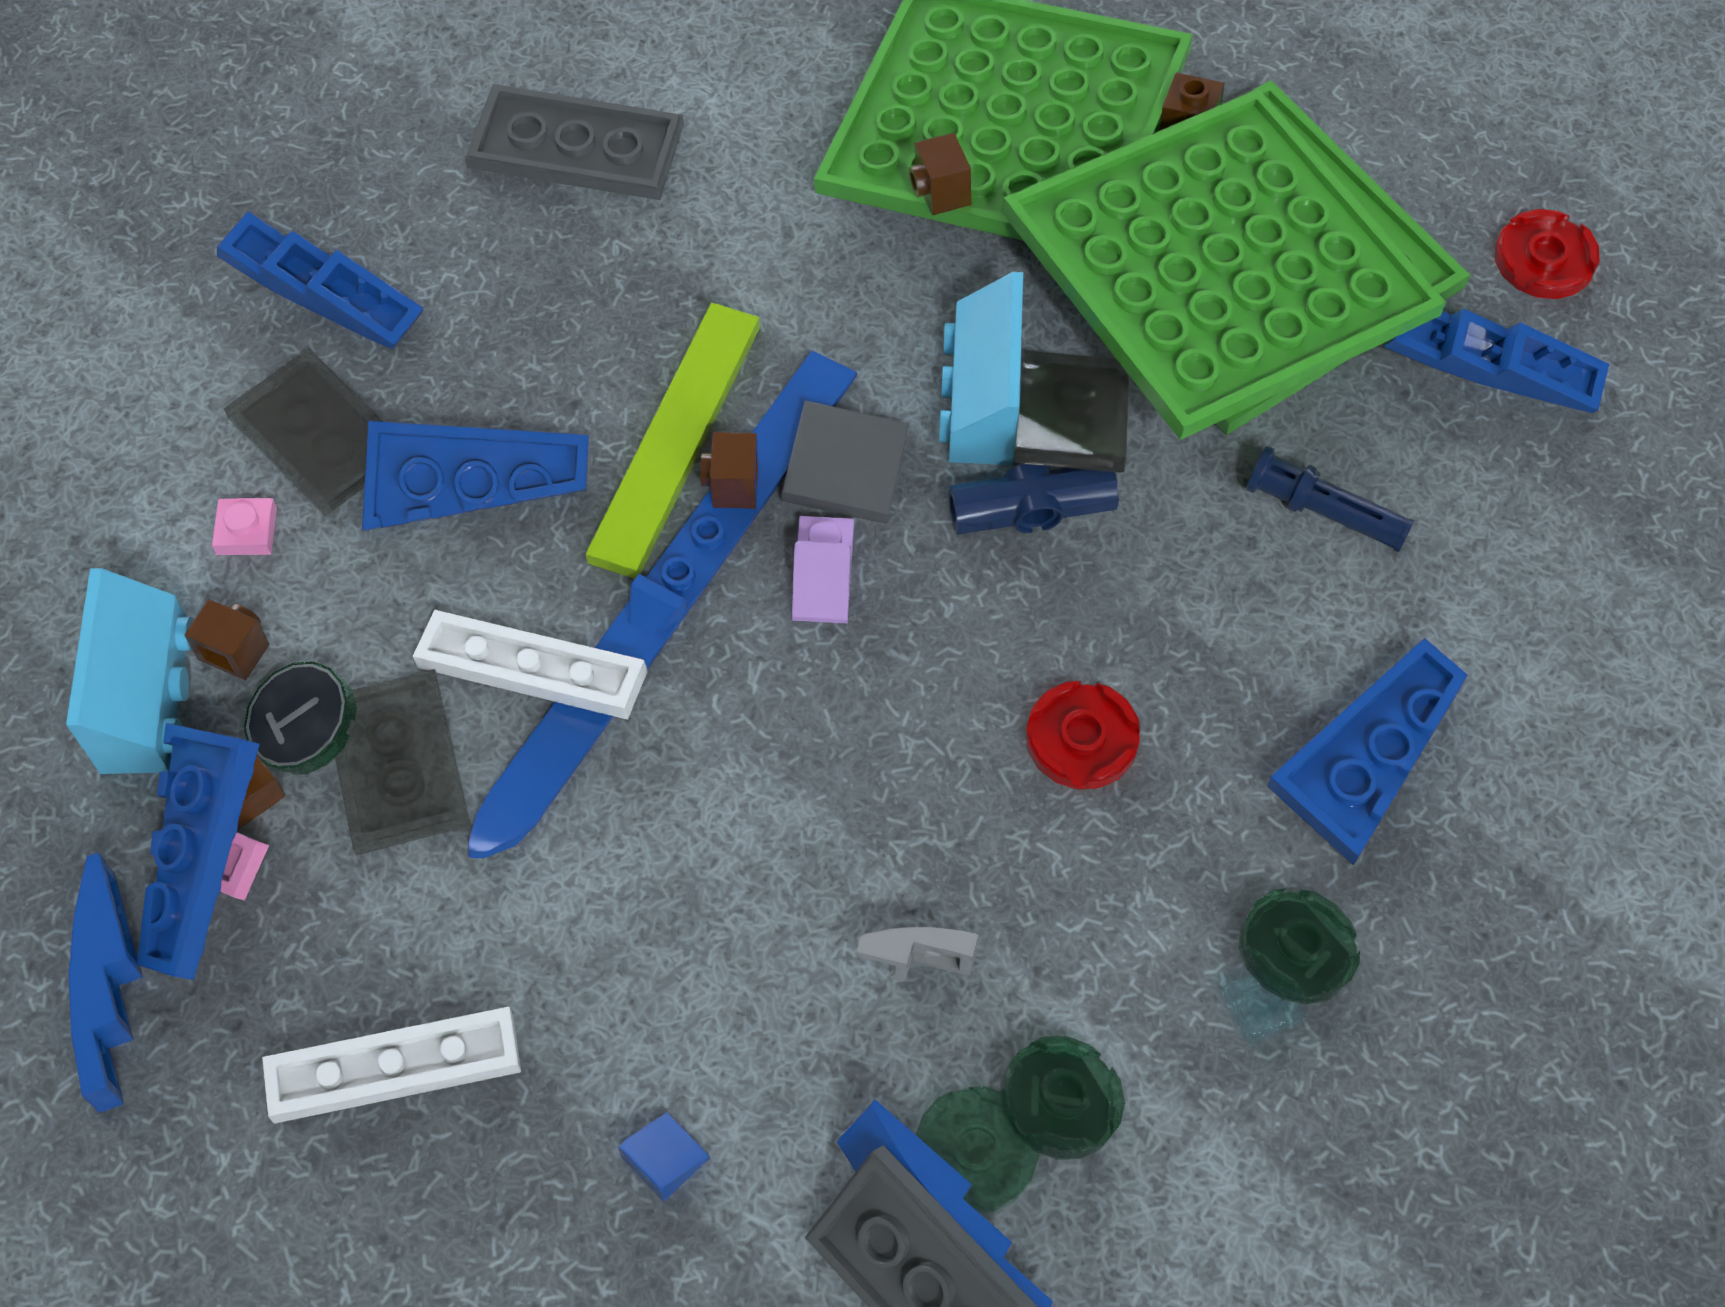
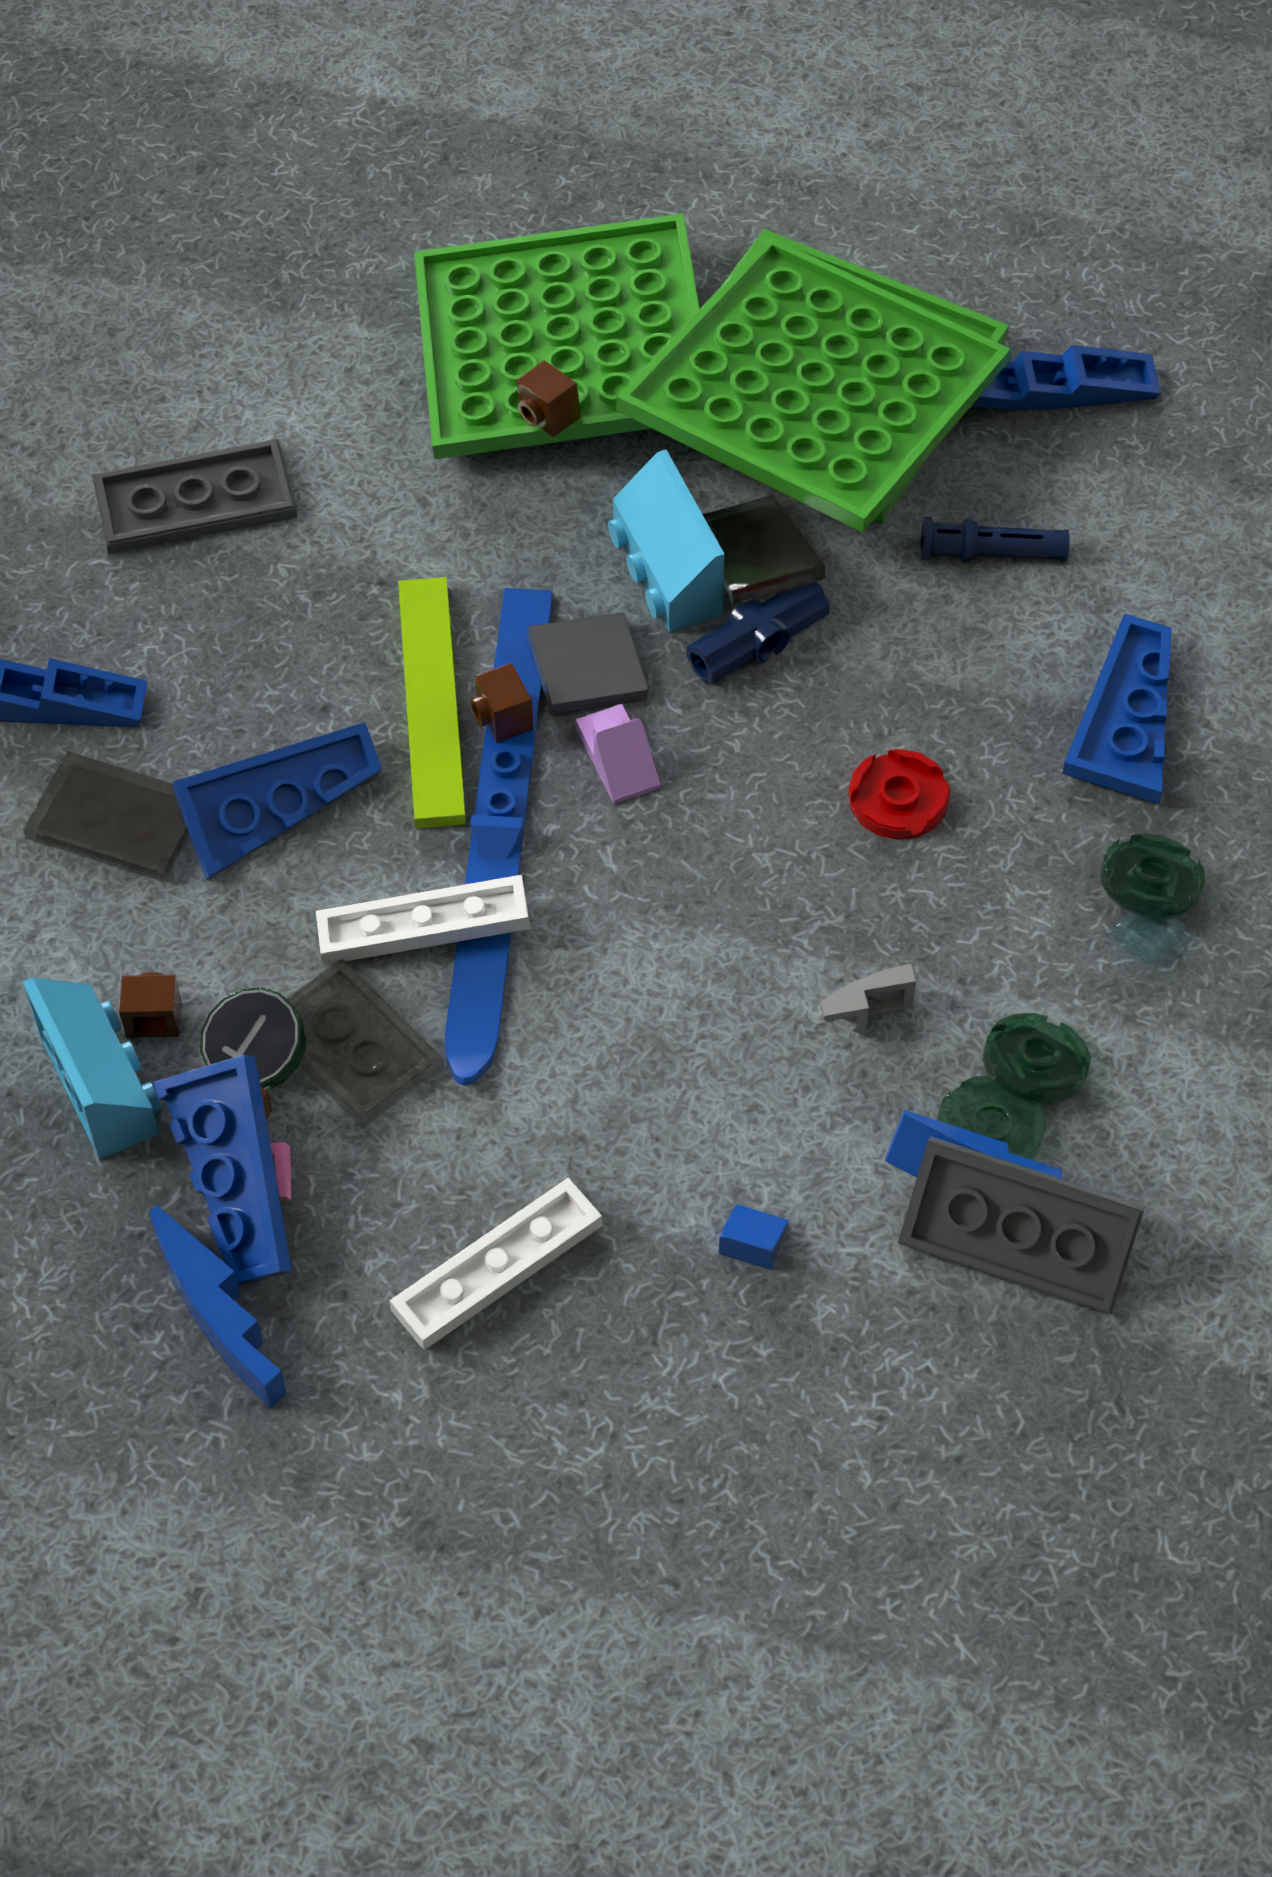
camera: 25 degrees left, 5 degrees down
(244, 526) = (101, 916): bright pink plate -> none
(1190, 97) = (713, 267): reddish brown plate -> none
(1544, 268) = (1046, 297): red tile -> none

